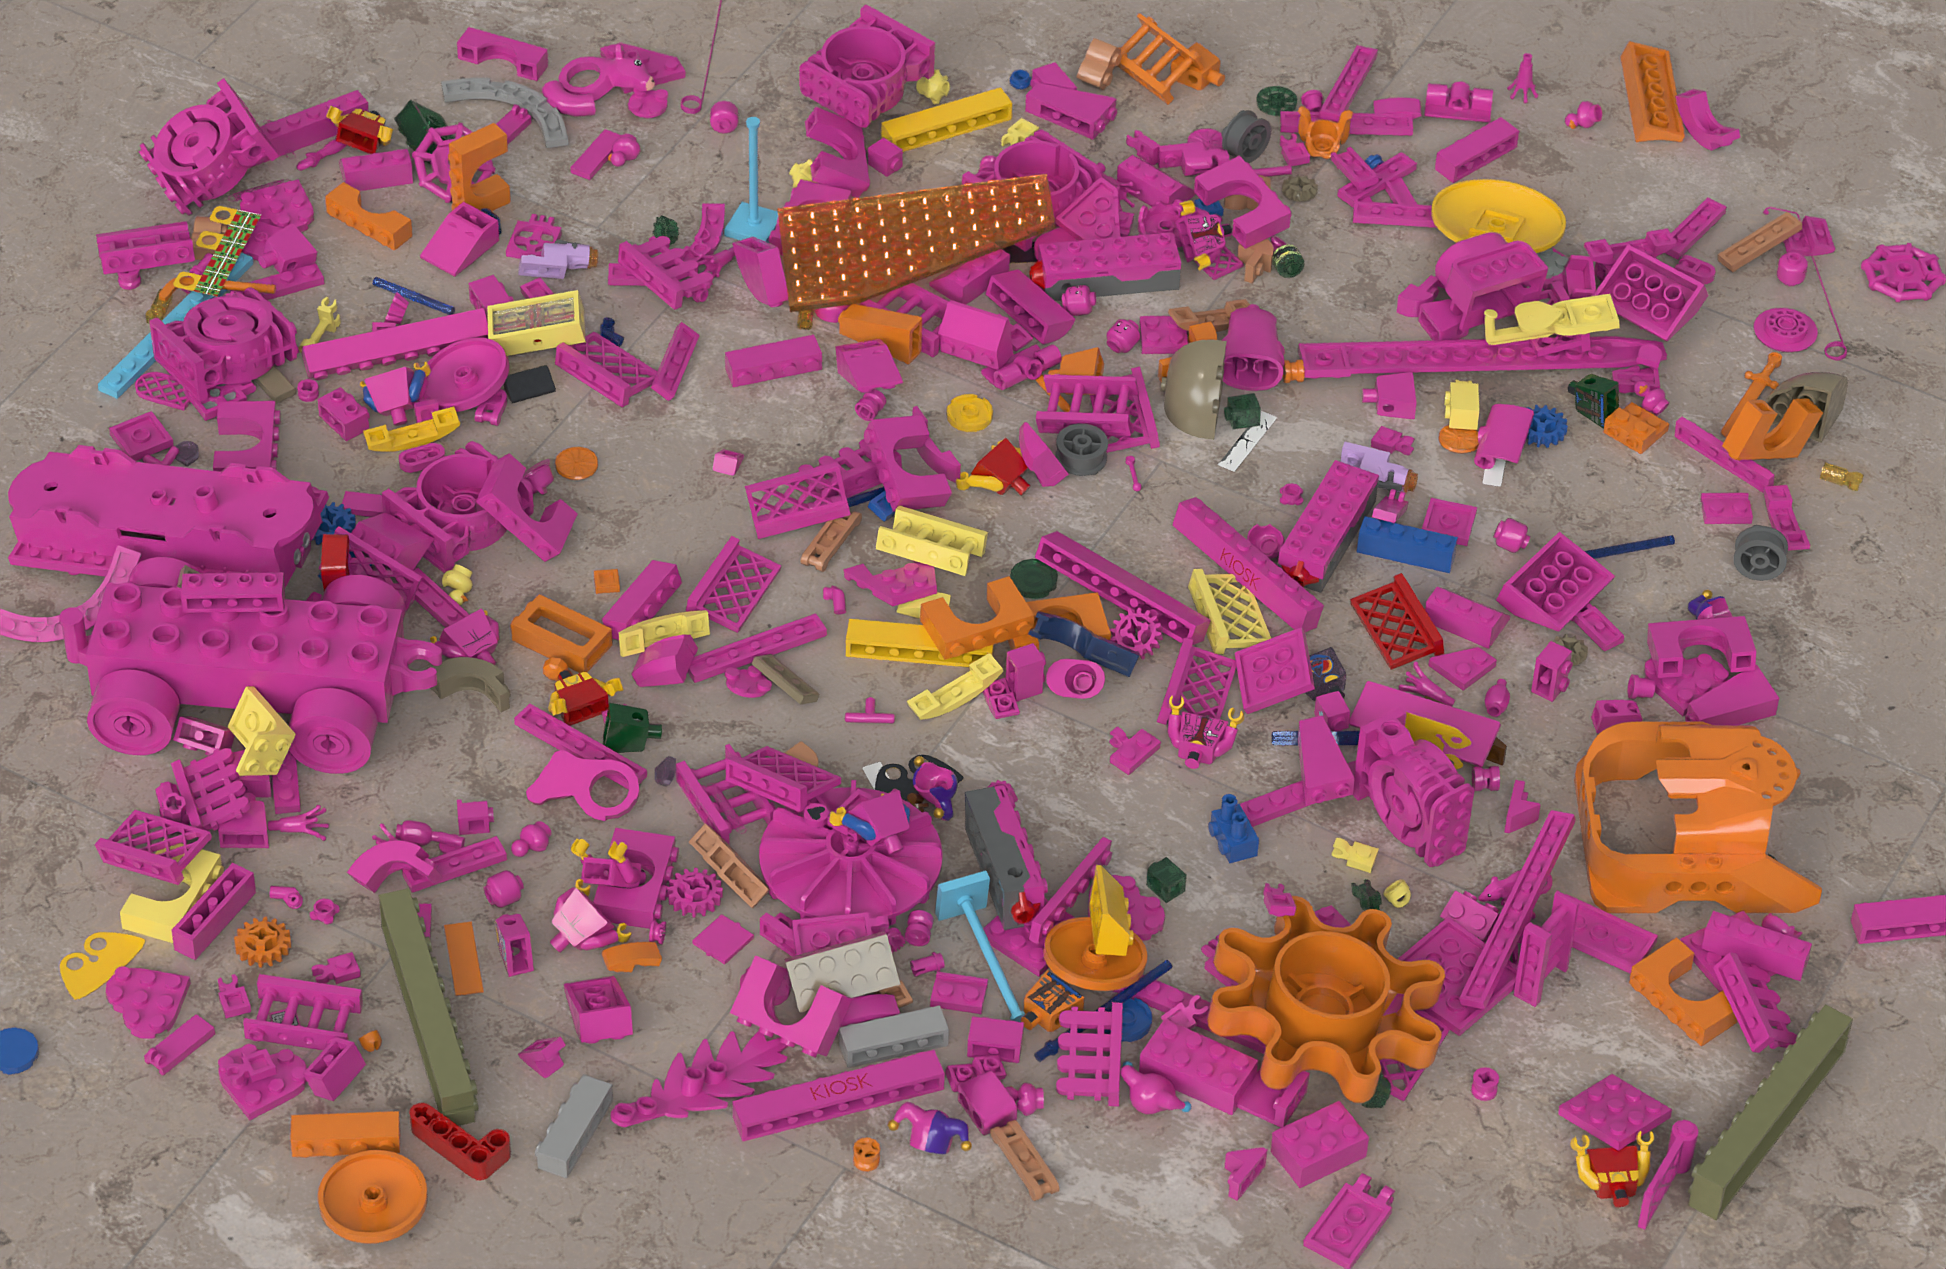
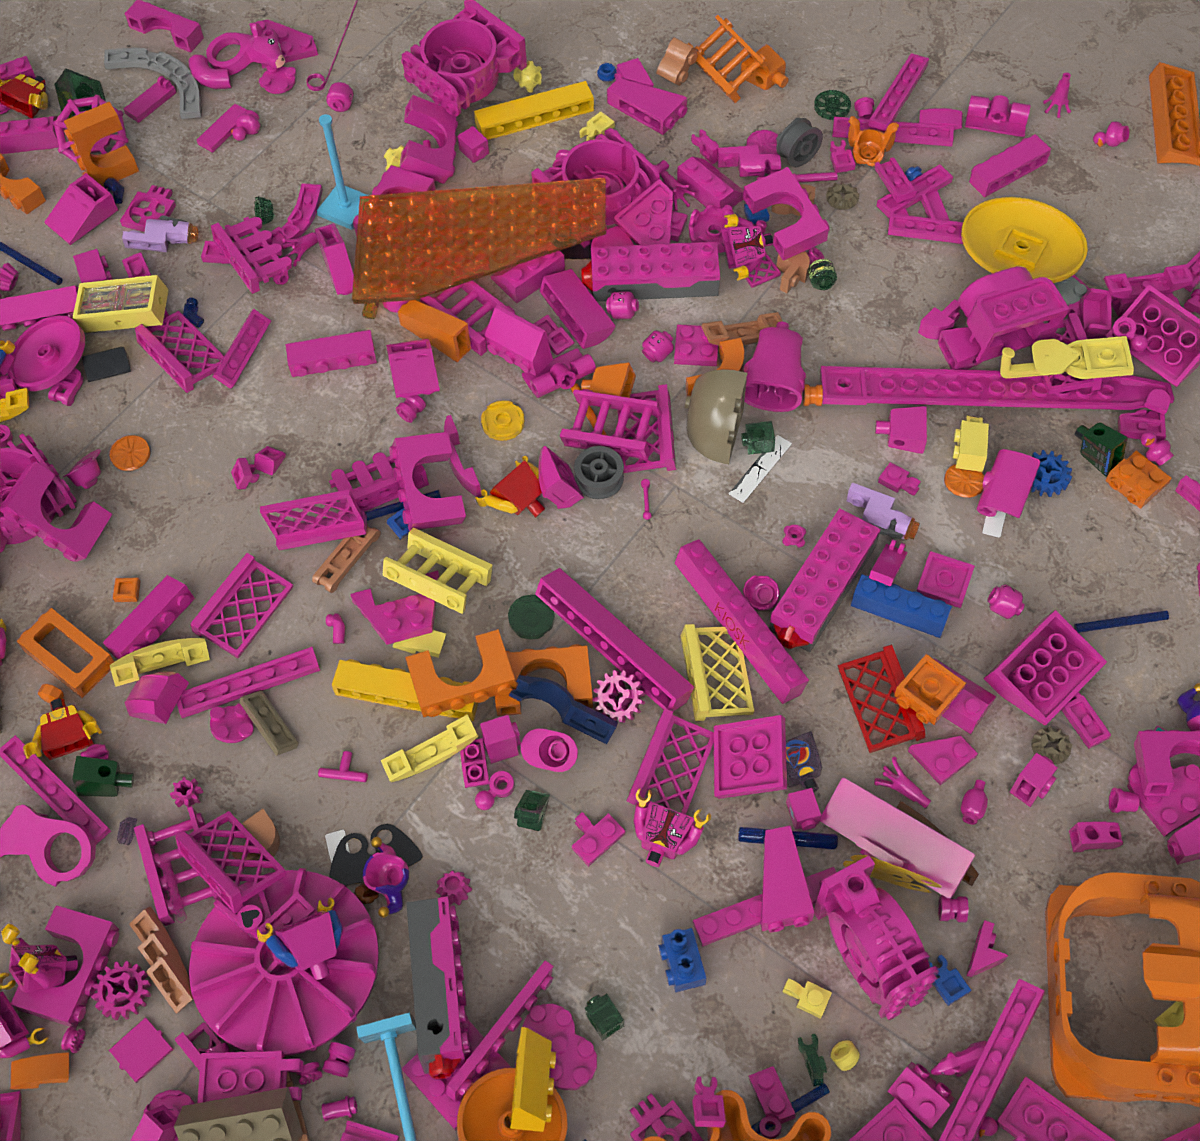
camera: 10 degrees right, 15 degrees up
(705, 472) = (243, 474): none -> dark pink tile
(716, 738) = (192, 792): none -> dark pink gear
(1018, 726) = (485, 799): none -> dark pink plate
(1065, 734) = (531, 810): none -> clear green slope
(1442, 601) = (929, 690): none -> orange plate
(1488, 835) = (949, 984): none -> blue plate
(1622, 300) = (1137, 342): none -> dark pink plate

